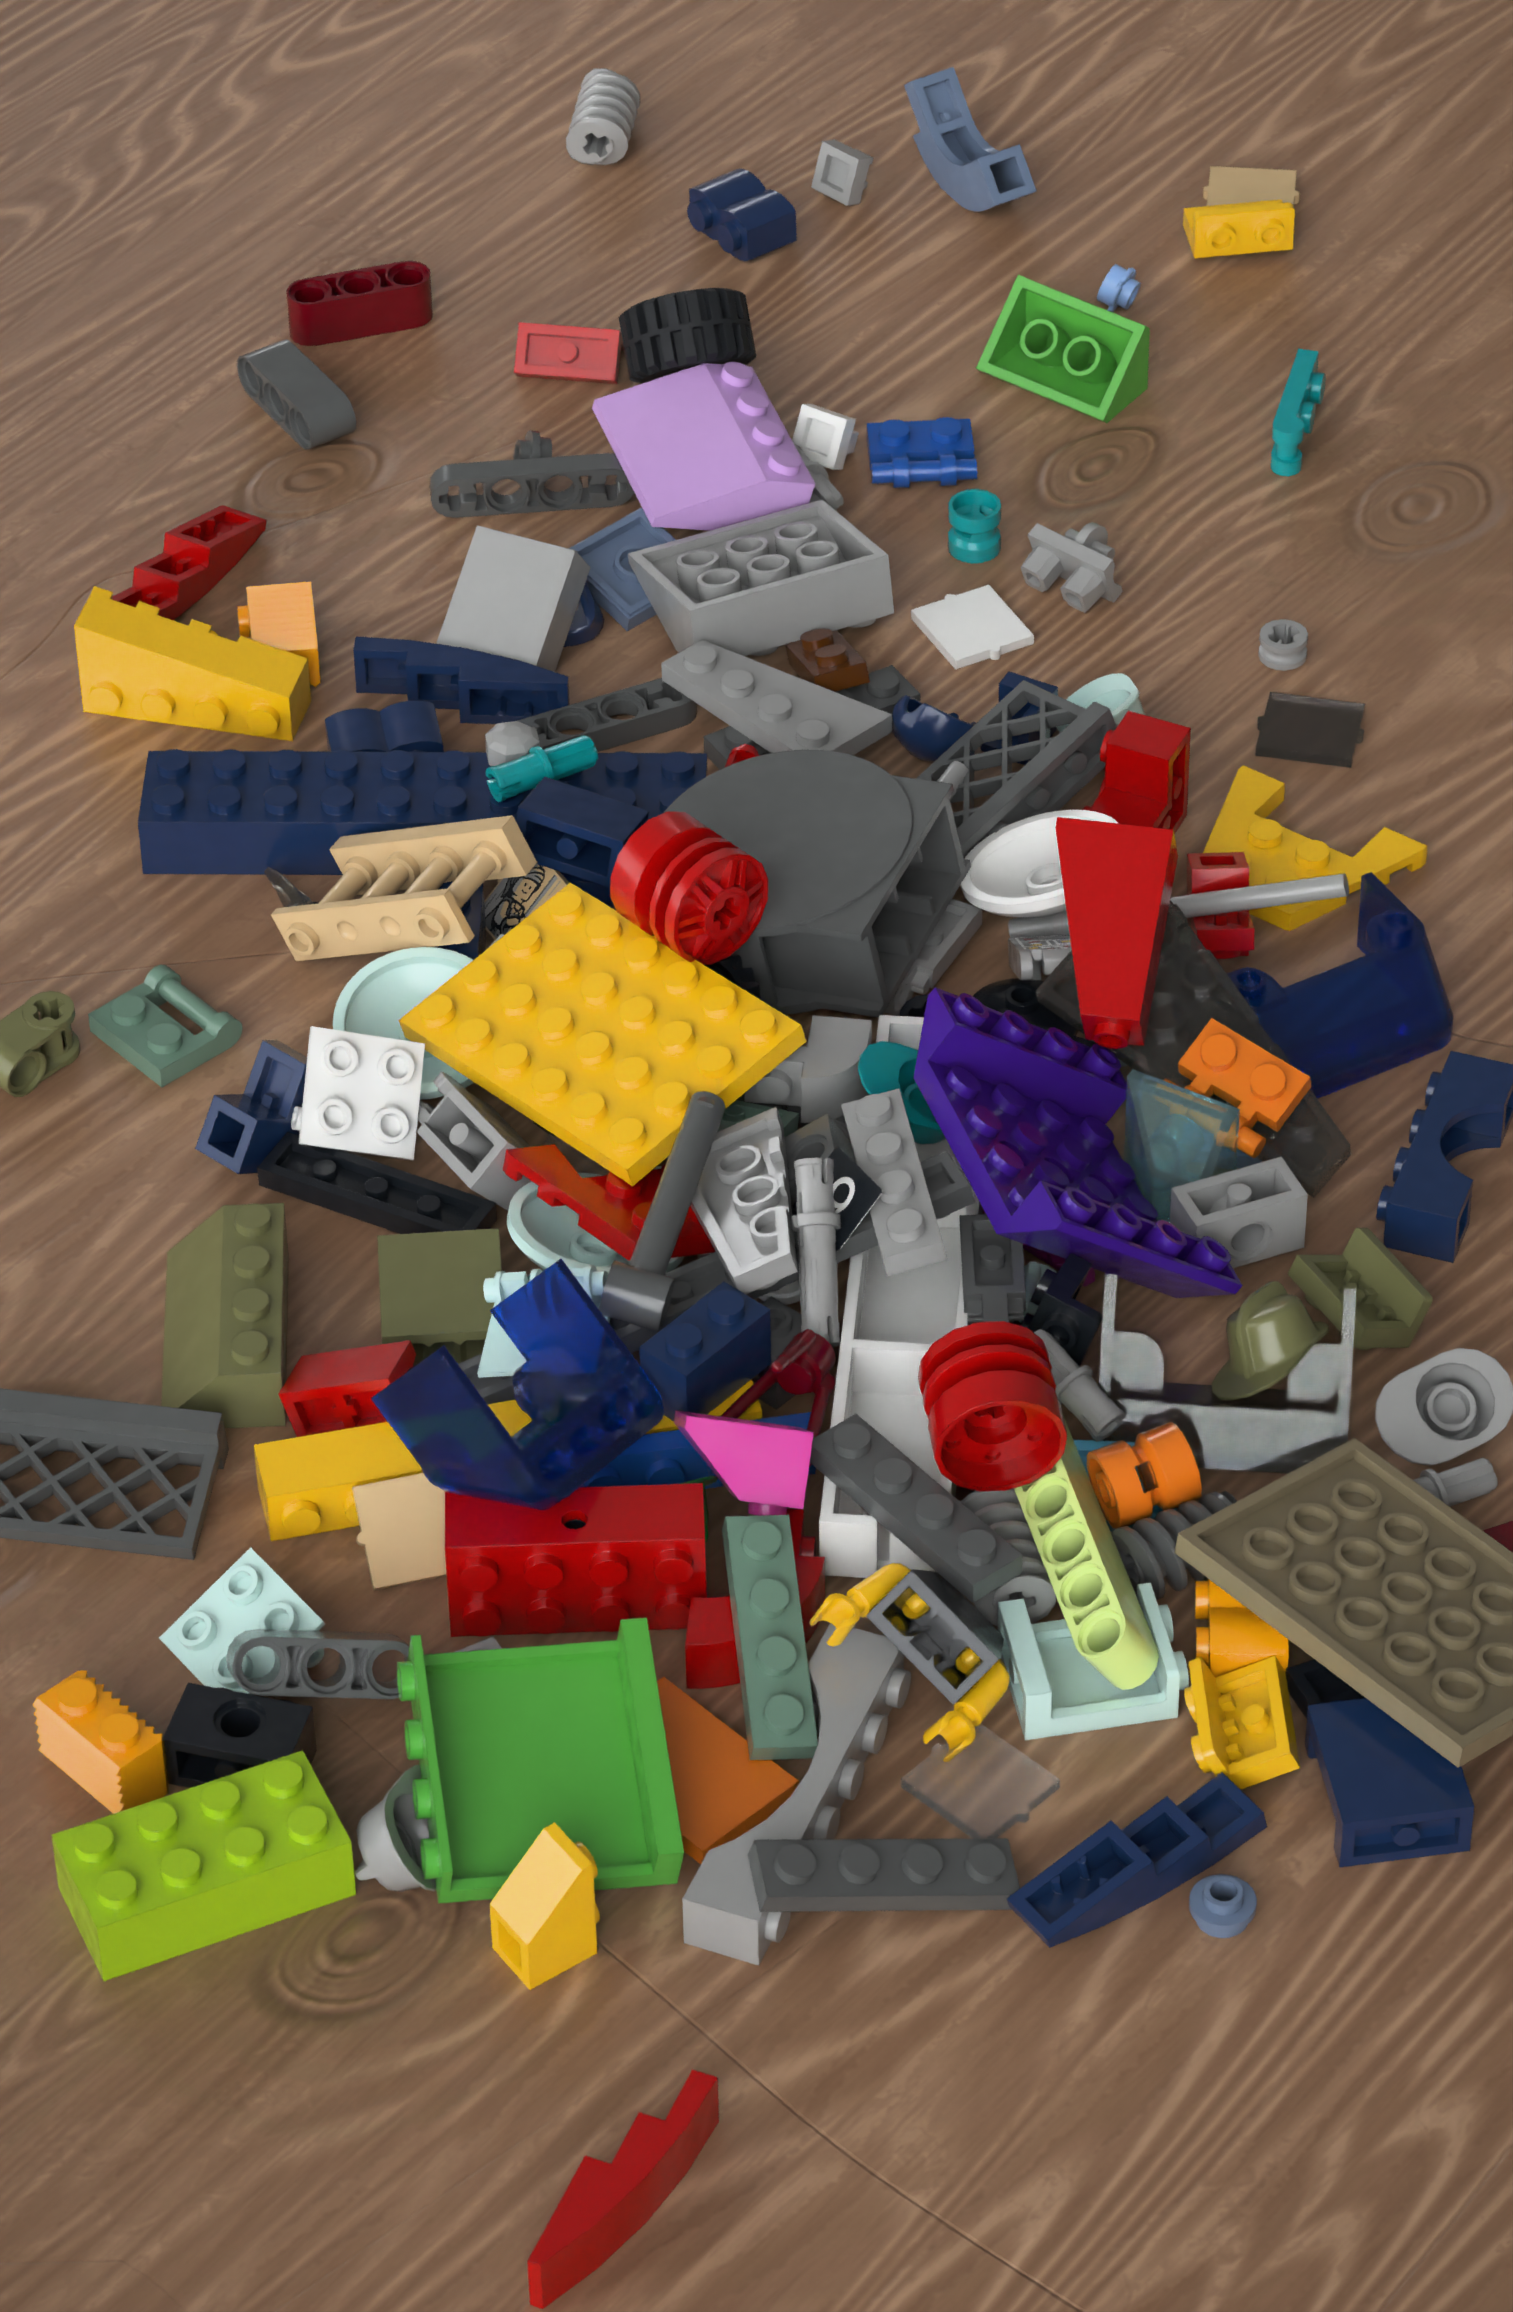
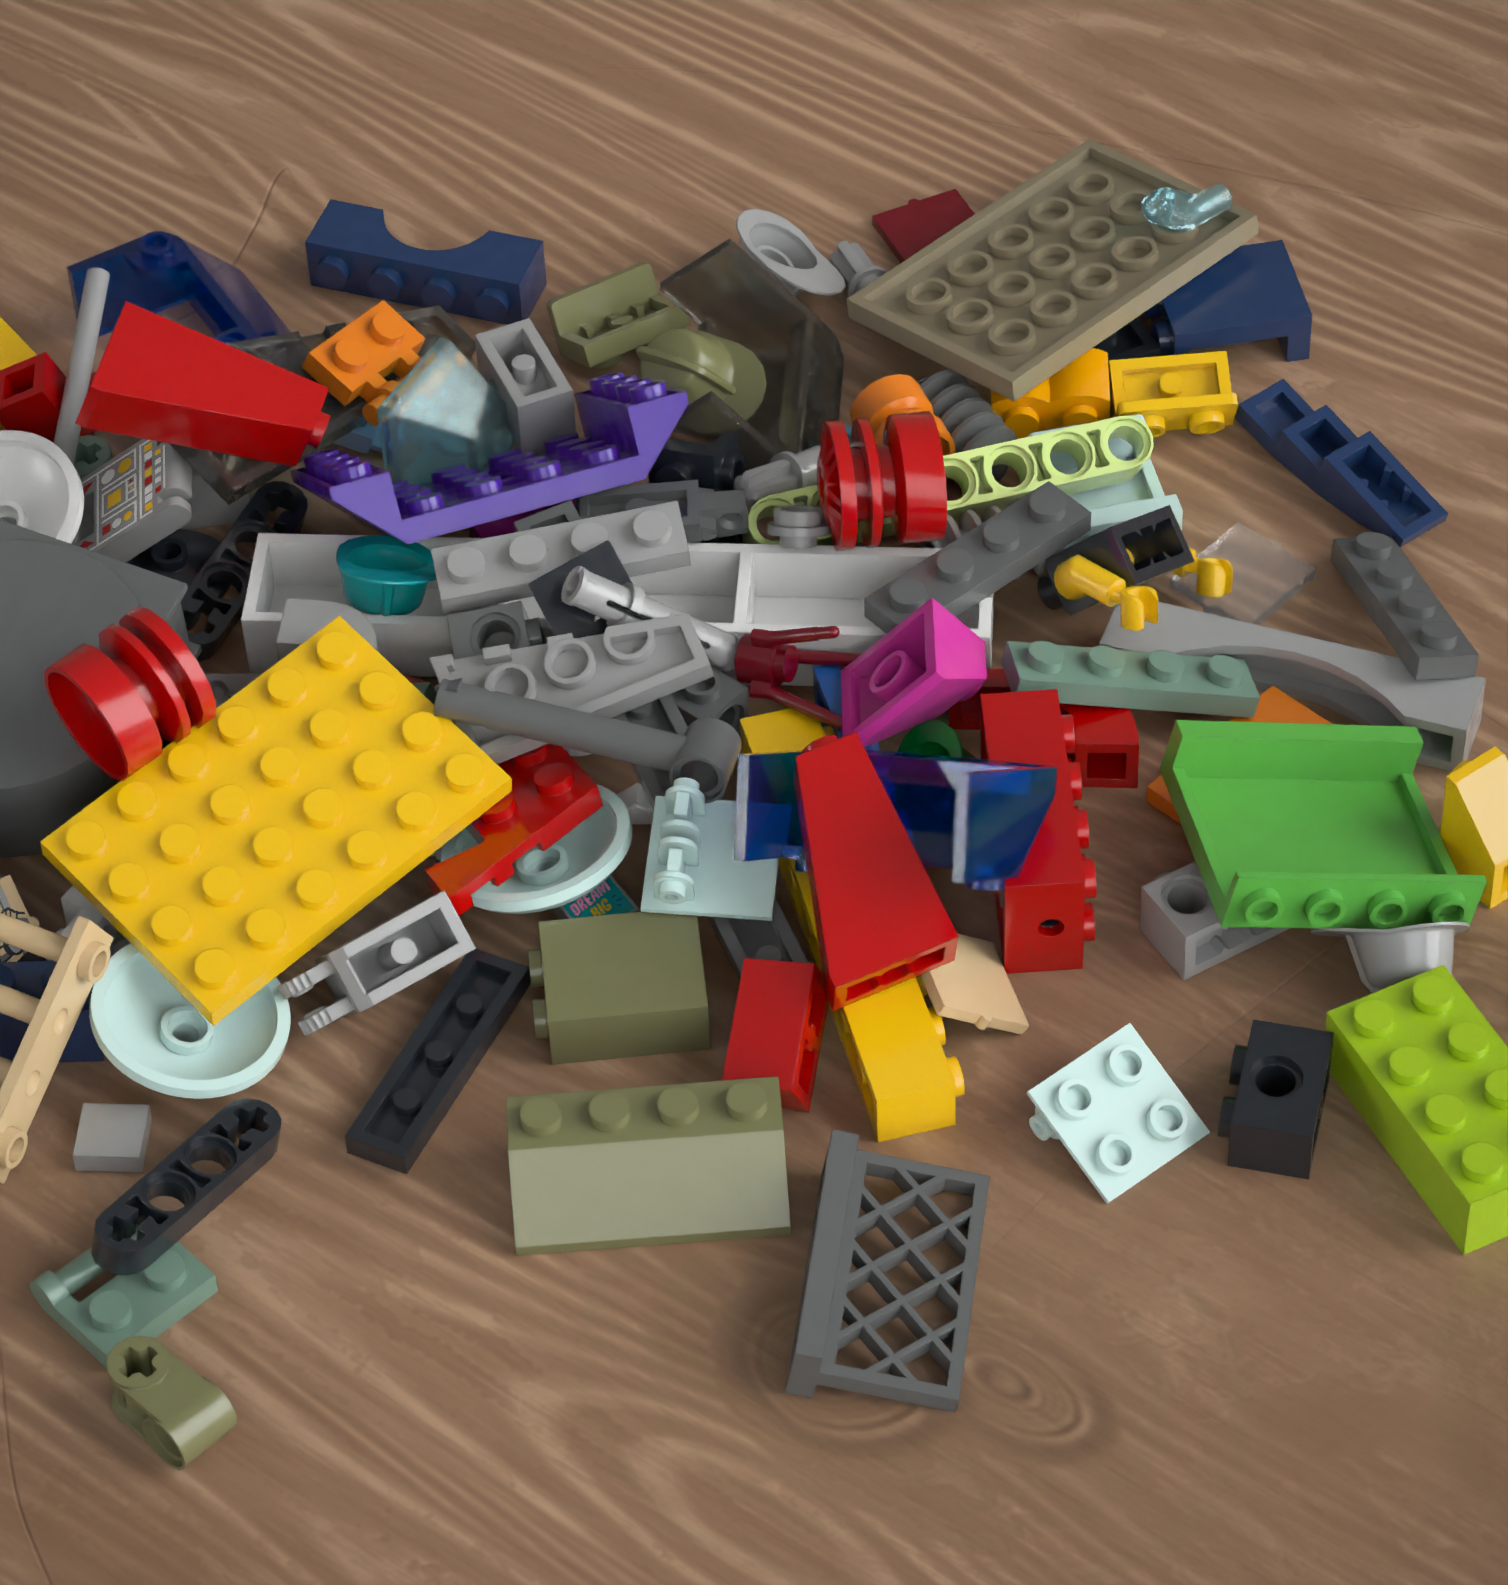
camera: 90 degrees left, 5 degrees up
(101, 1743) = (1301, 1207): light orange brick -> none
(207, 1001) = (177, 1178): none -> black beam
(249, 1125) = (314, 1160): dark blue brick -> none
(292, 1654) = (1182, 1025): dark grey beam -> none
(315, 1007) = (112, 1137): none -> light grey tile
(360, 1093) = (336, 1051): white hinge -> none
(513, 1362) = (866, 882): none -> red slope
(708, 1351) = (768, 705): dark blue brick -> none
(1222, 1905) = (1379, 413): sand blue plate -> none
(1454, 1680) = (1185, 210): none -> clear light blue arm

